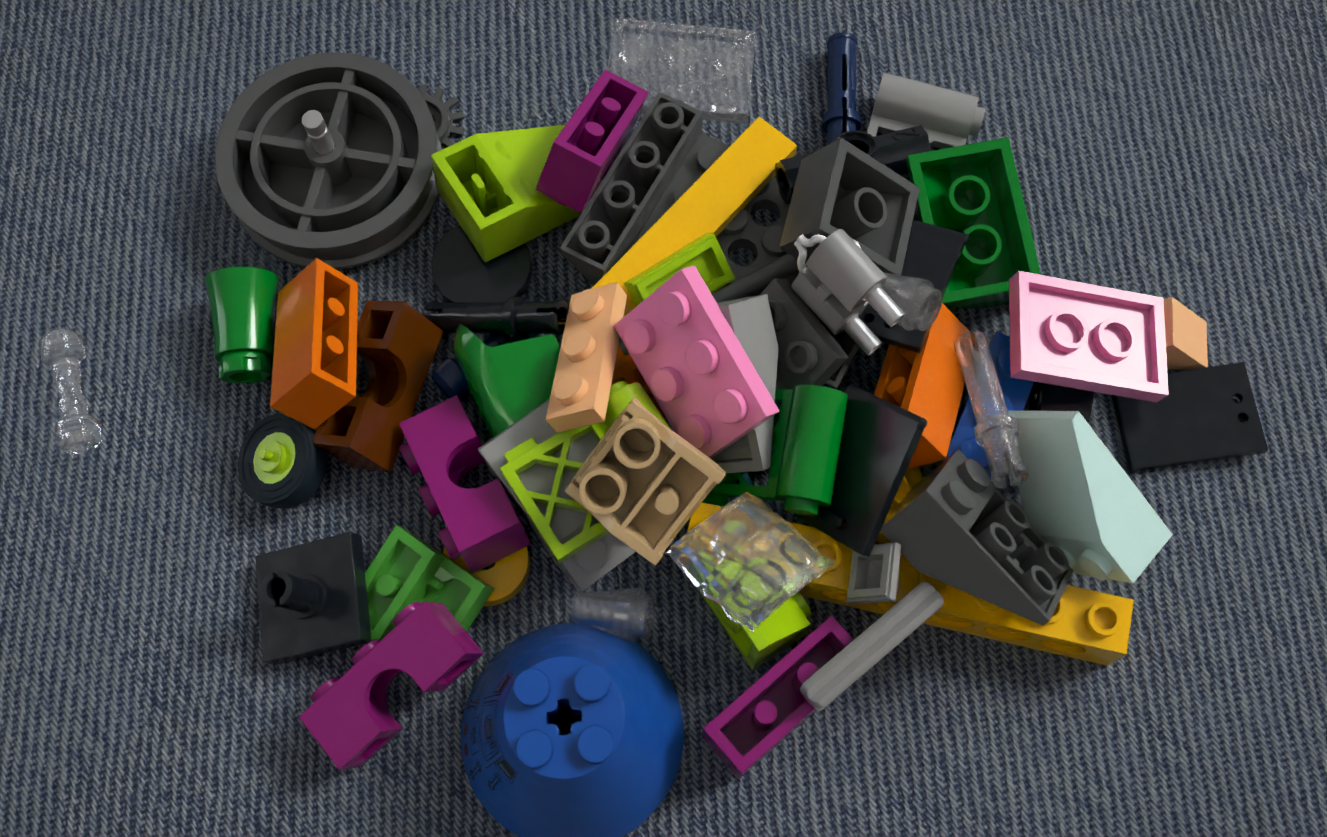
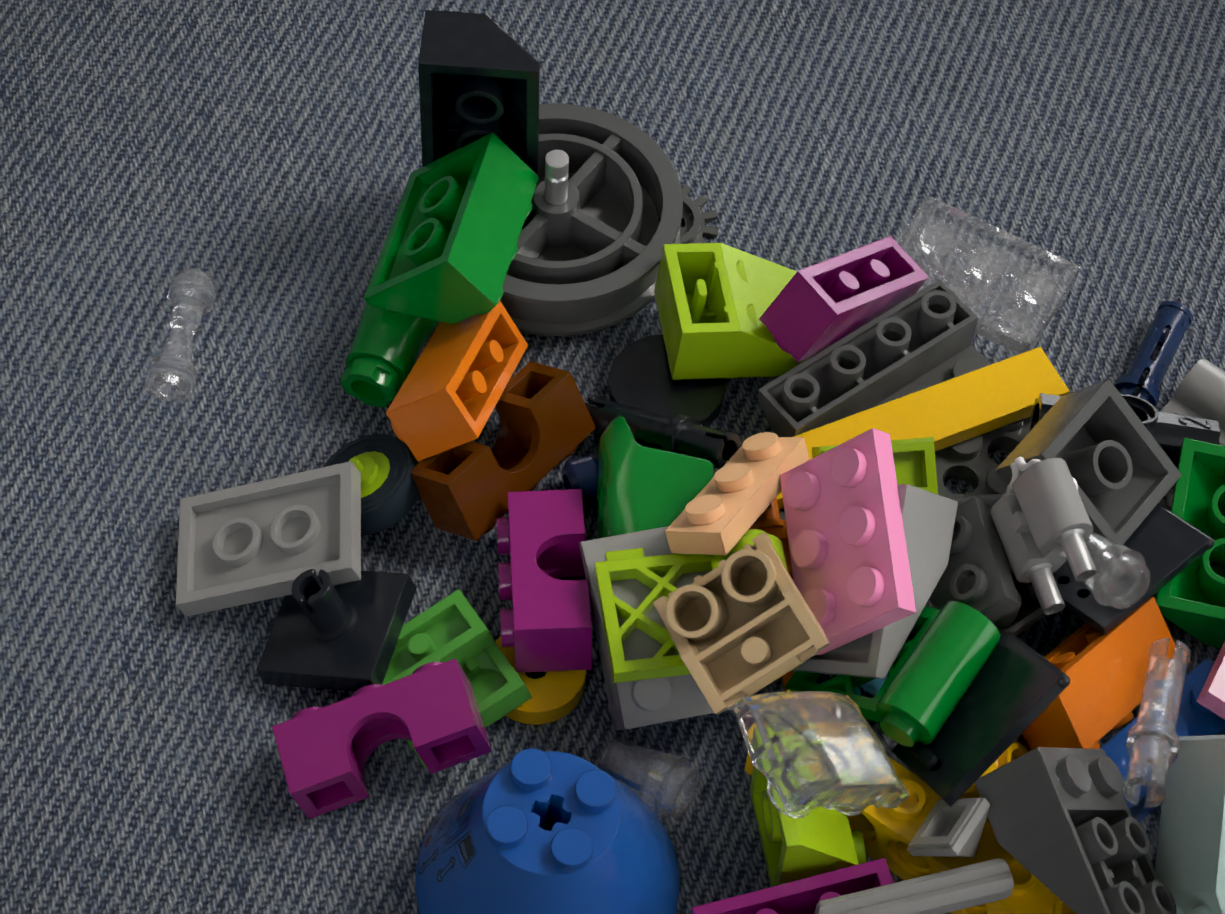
camera: 20 degrees right, 15 degrees down
(220, 96) = (474, 85): none -> black slope
(222, 548) = (263, 534): none -> light grey plate
(256, 219) = (454, 234): none -> green slope

